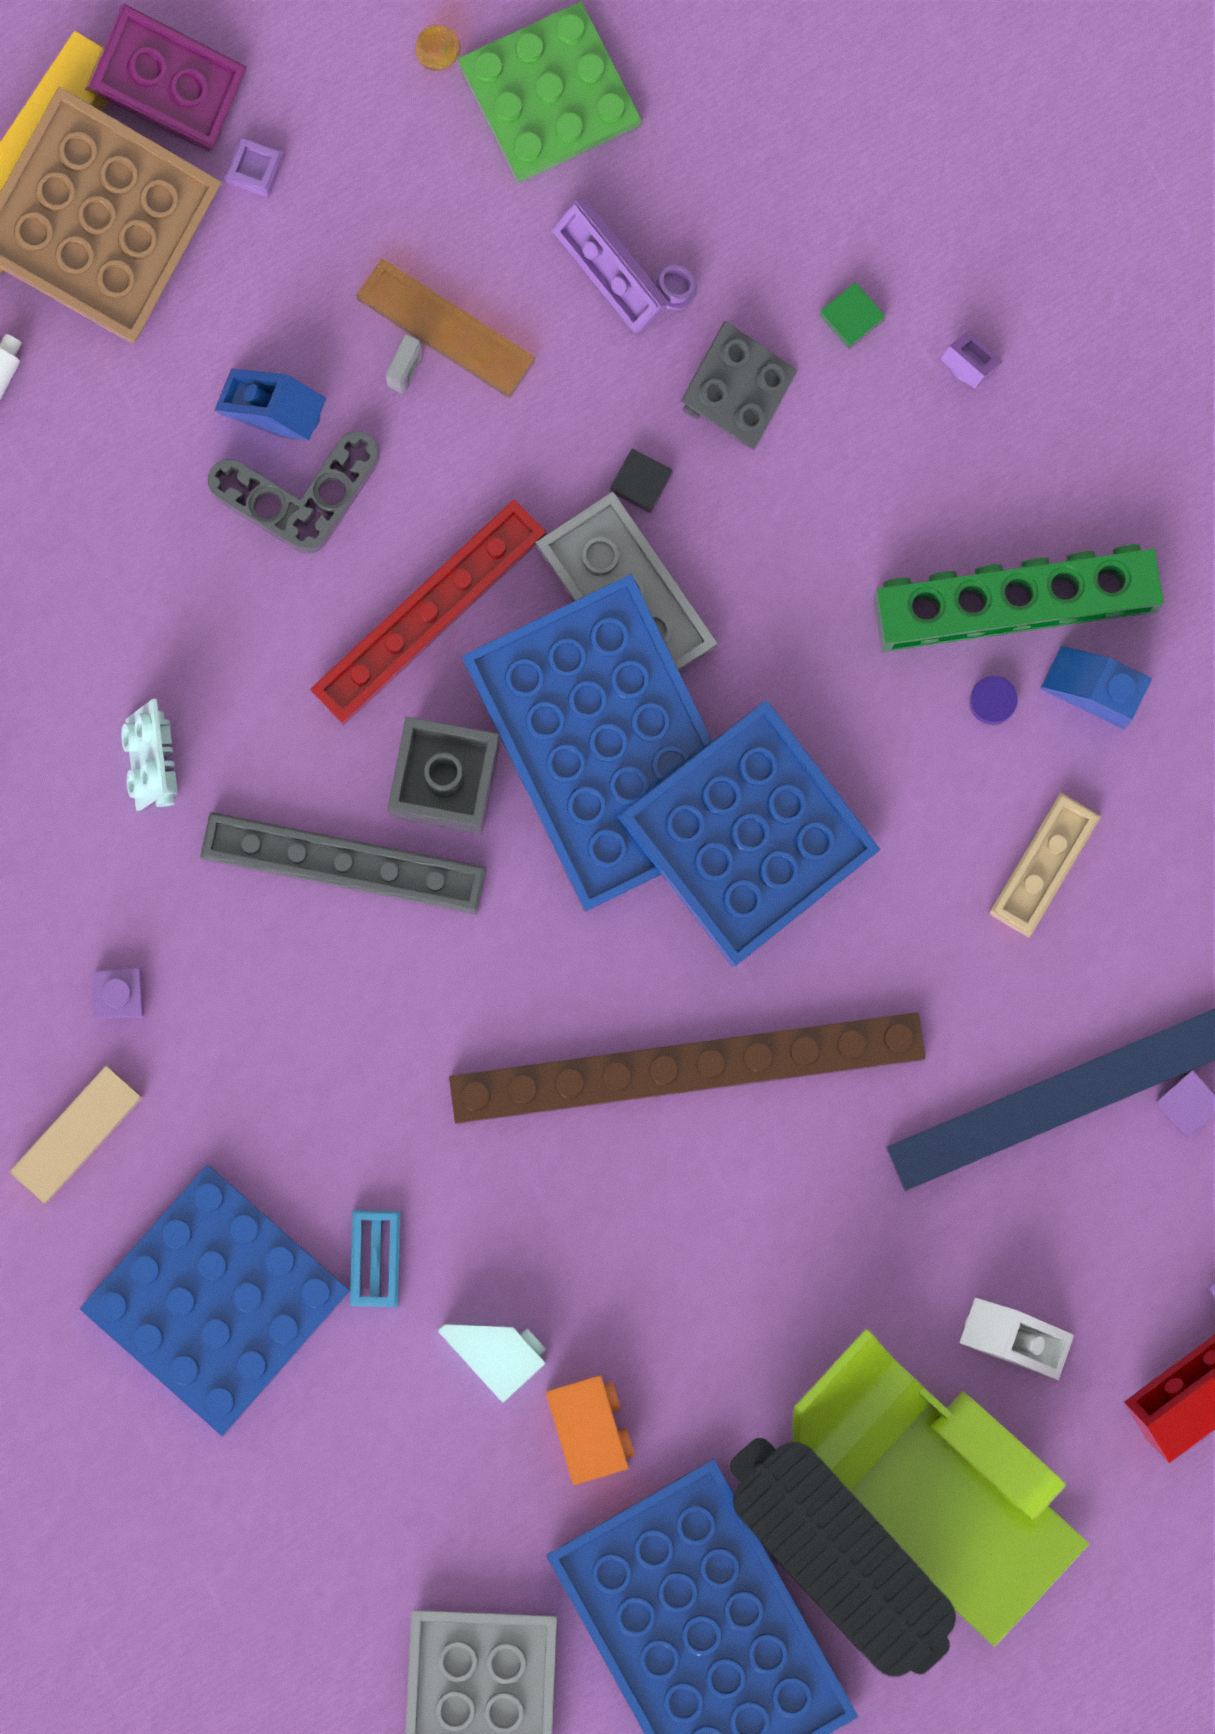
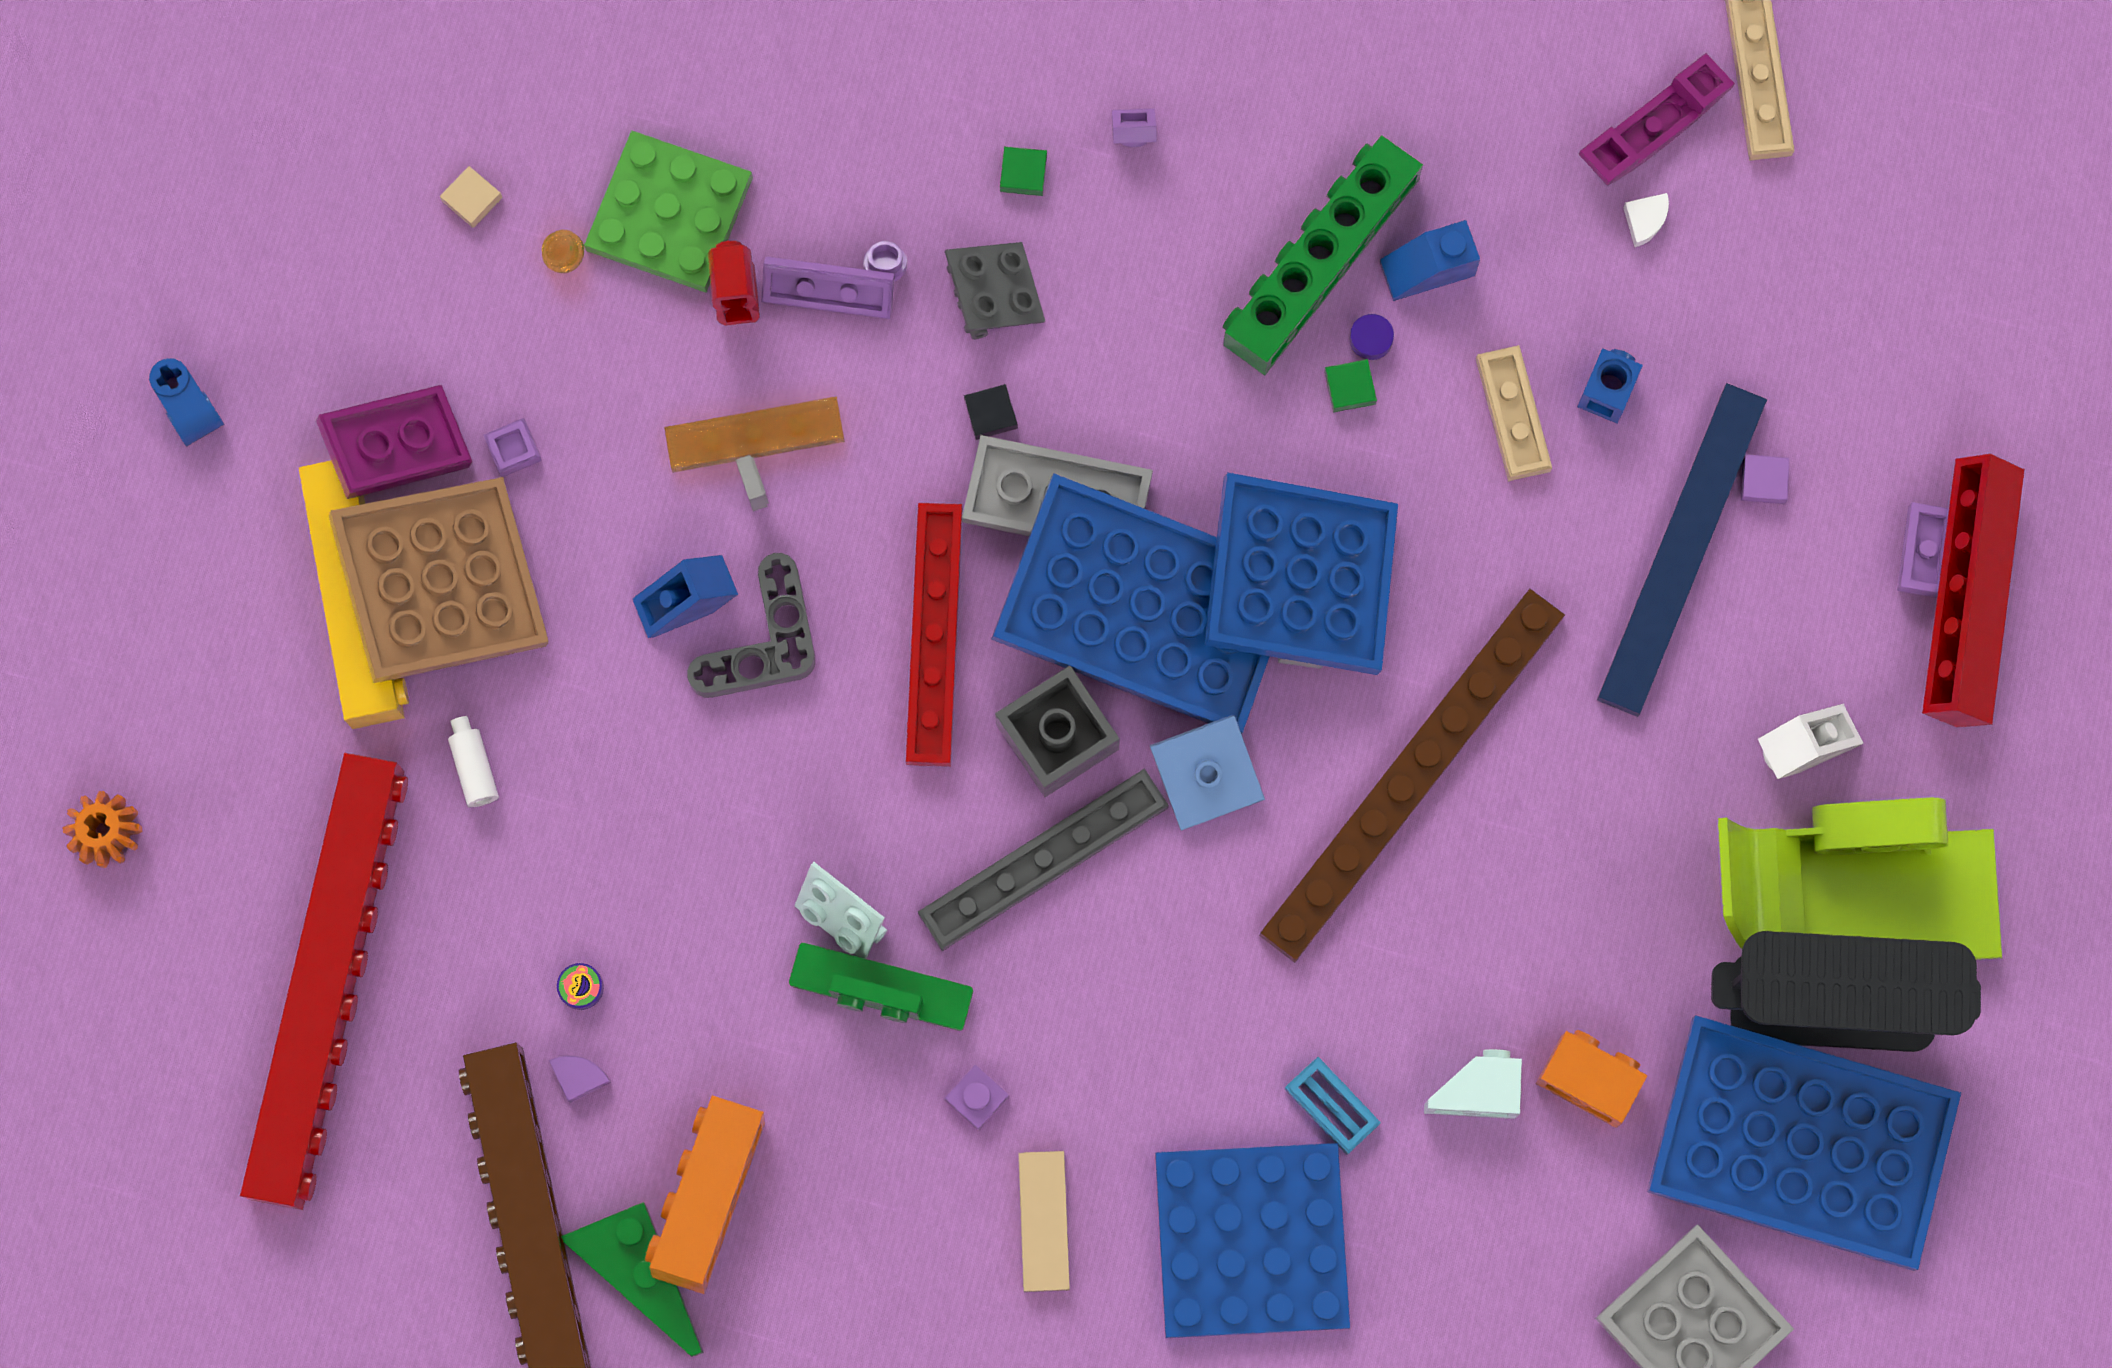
camera: 40 degrees left, 5 degrees down
(127, 843) = (880, 986): none -> green bracket
(528, 915) = (1207, 772): none -> medium blue plate
(536, 194) = (733, 283): none -> red brick
(938, 723) = (1350, 385): none -> green tile
(1124, 926) = (1605, 401): none -> blue brick

